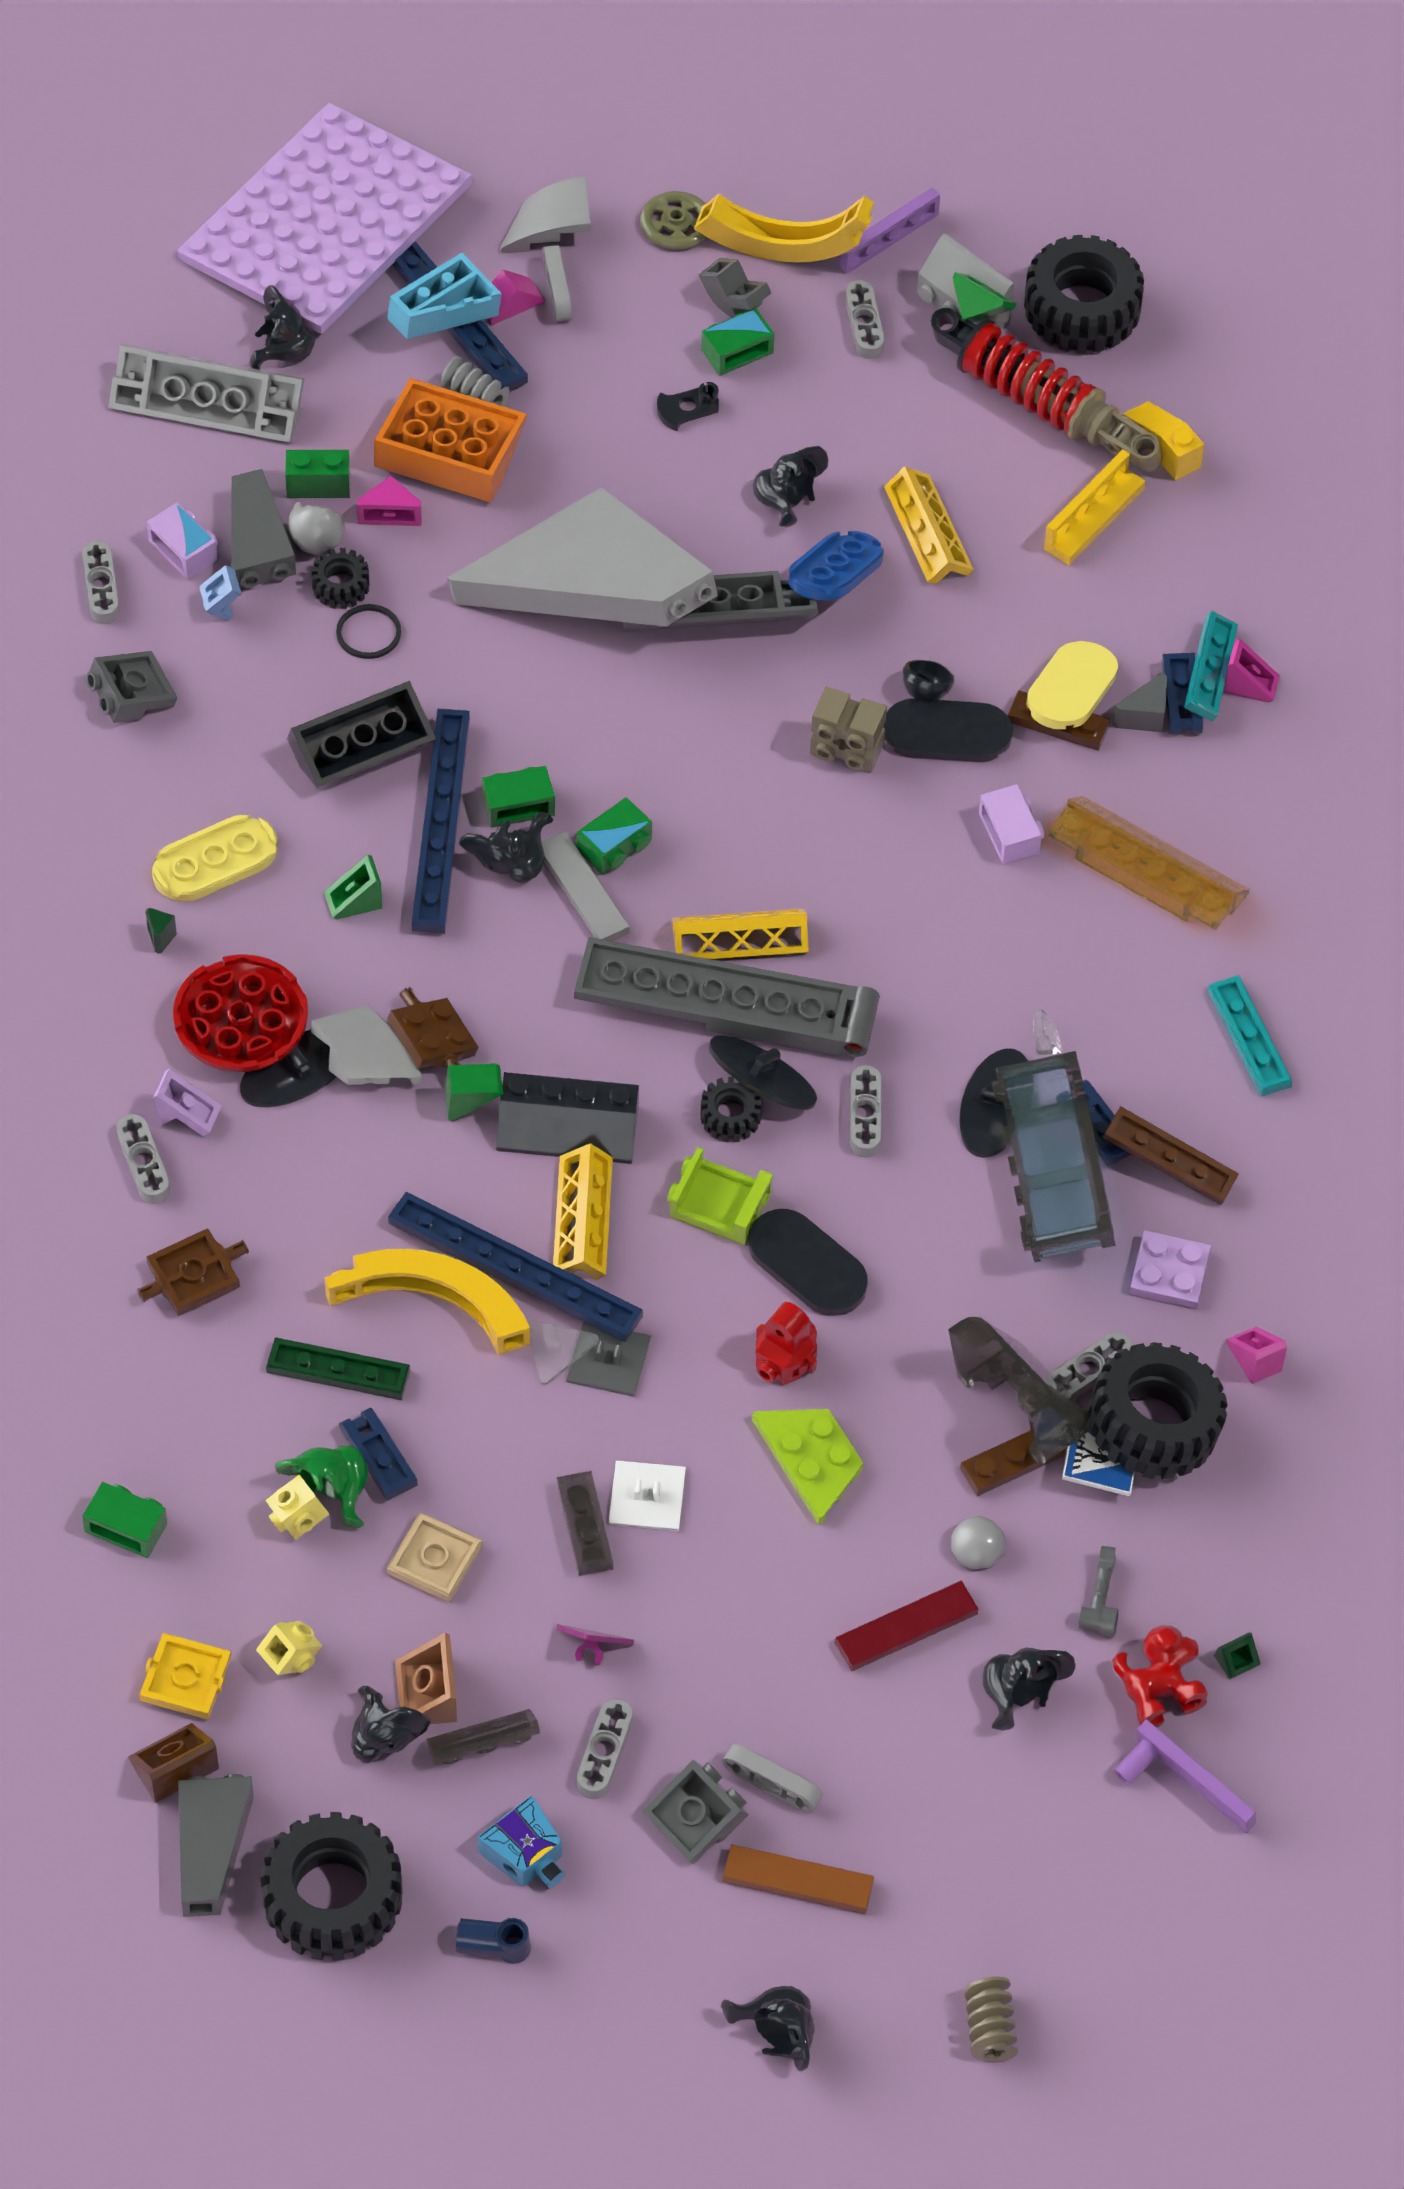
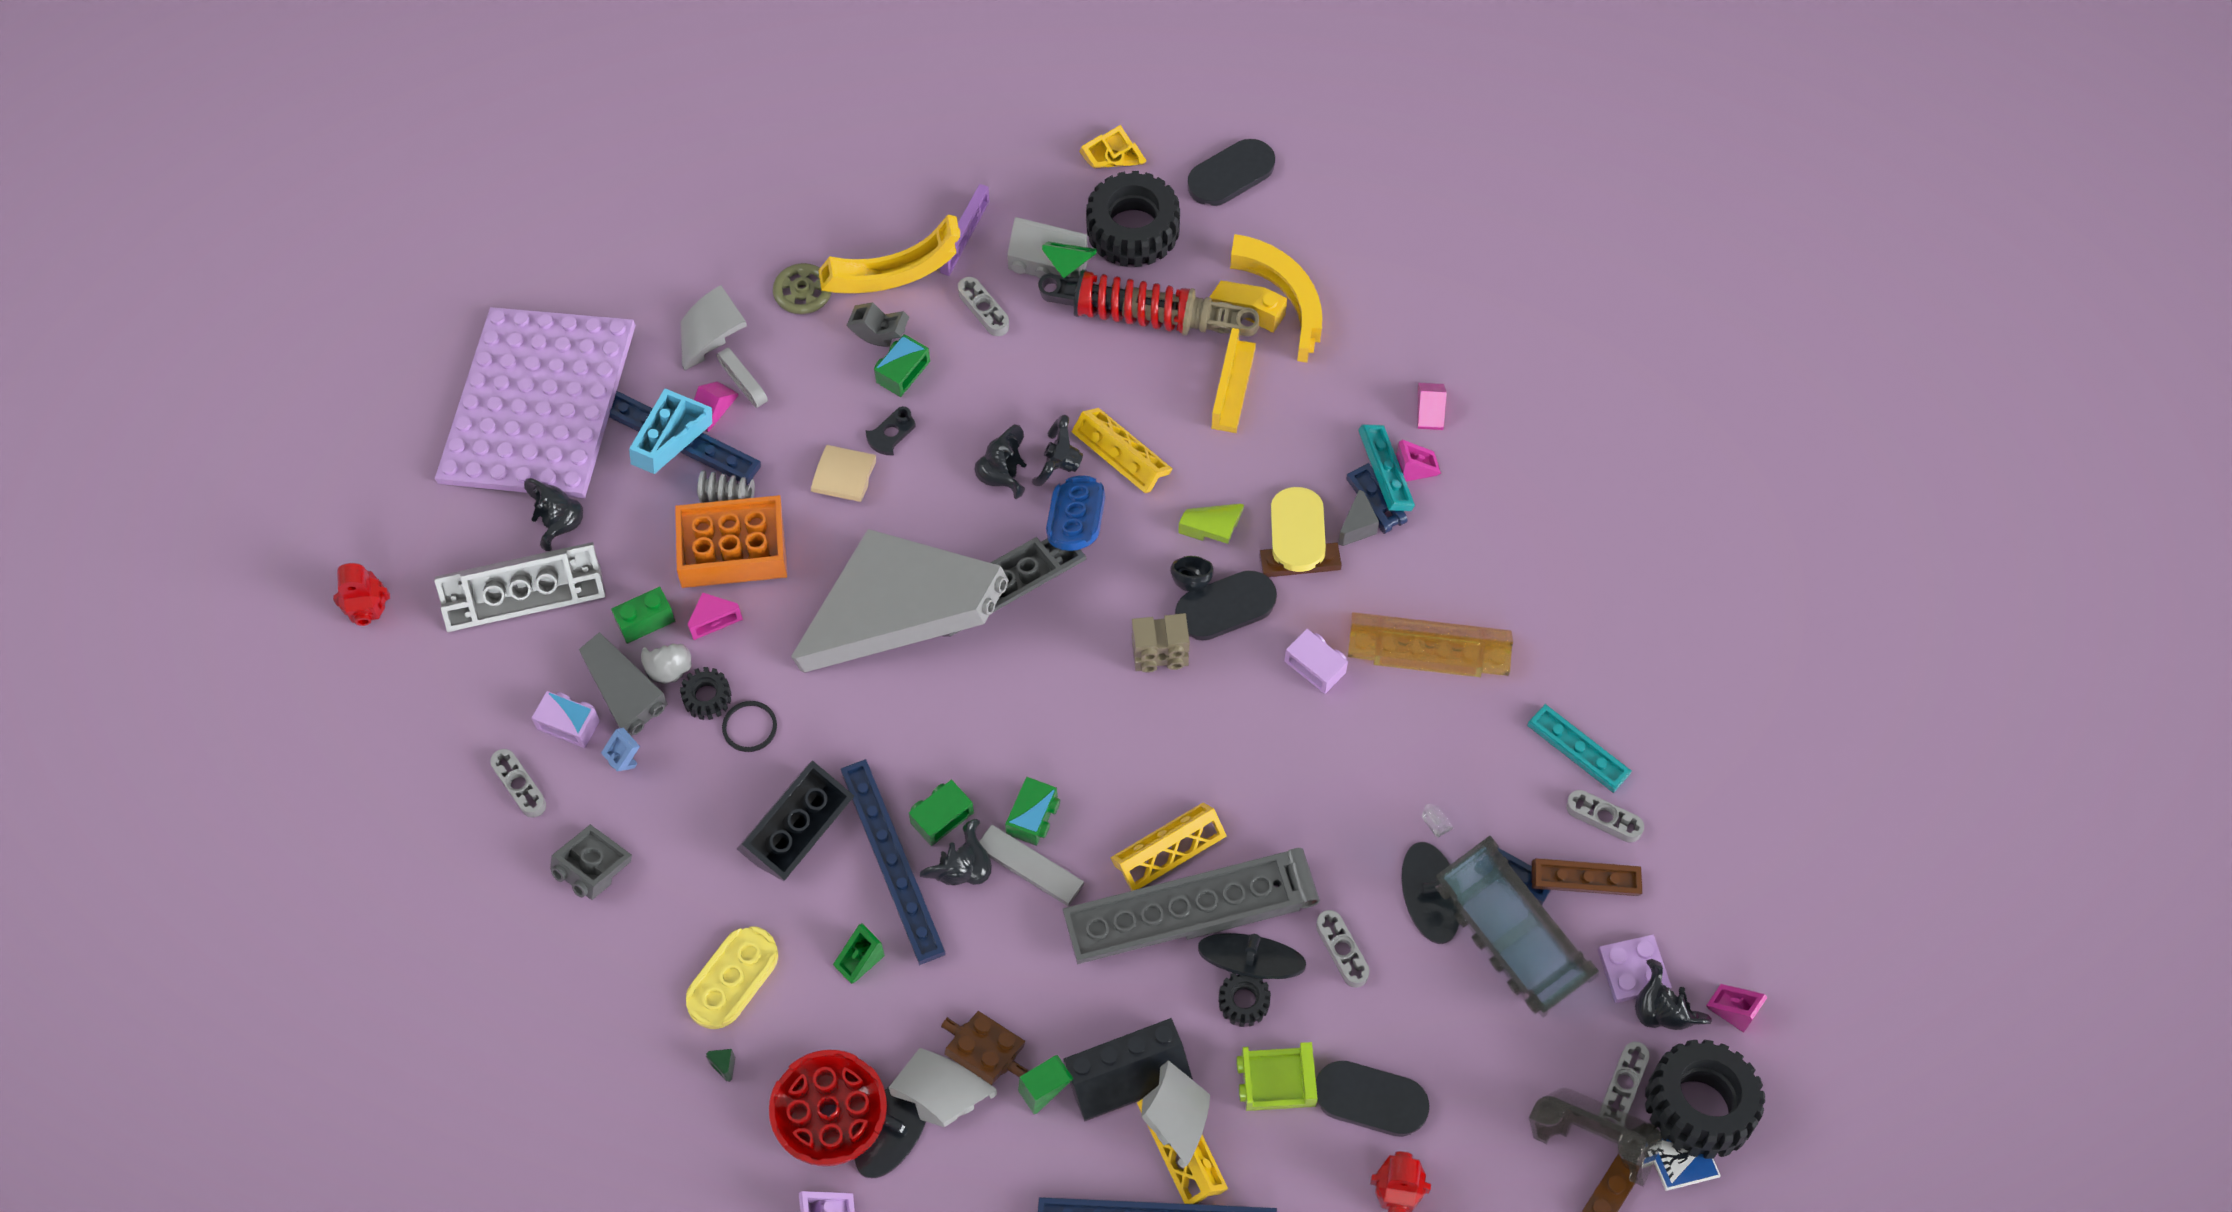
camera: 25 degrees left, 5 degrees up
(38, 329) = (360, 594): none -> red piece
(591, 1170) = (1177, 1111): none -> light grey slope
(610, 424) = (843, 473): none -> tan slope
(854, 500) = (1060, 453): none -> black piece
(982, 640) = (1211, 522): none -> lime slope
(1107, 214) = (1112, 150): none -> yellow slope
(1174, 1313) = (1661, 1007): none -> black piece
(1217, 409) = (1285, 273): none -> yellow arch
(1231, 292) = (1231, 172): none -> black tile
(1235, 1126) = (1608, 827): none -> light grey beam
(1304, 627) = (1431, 406): none -> slope

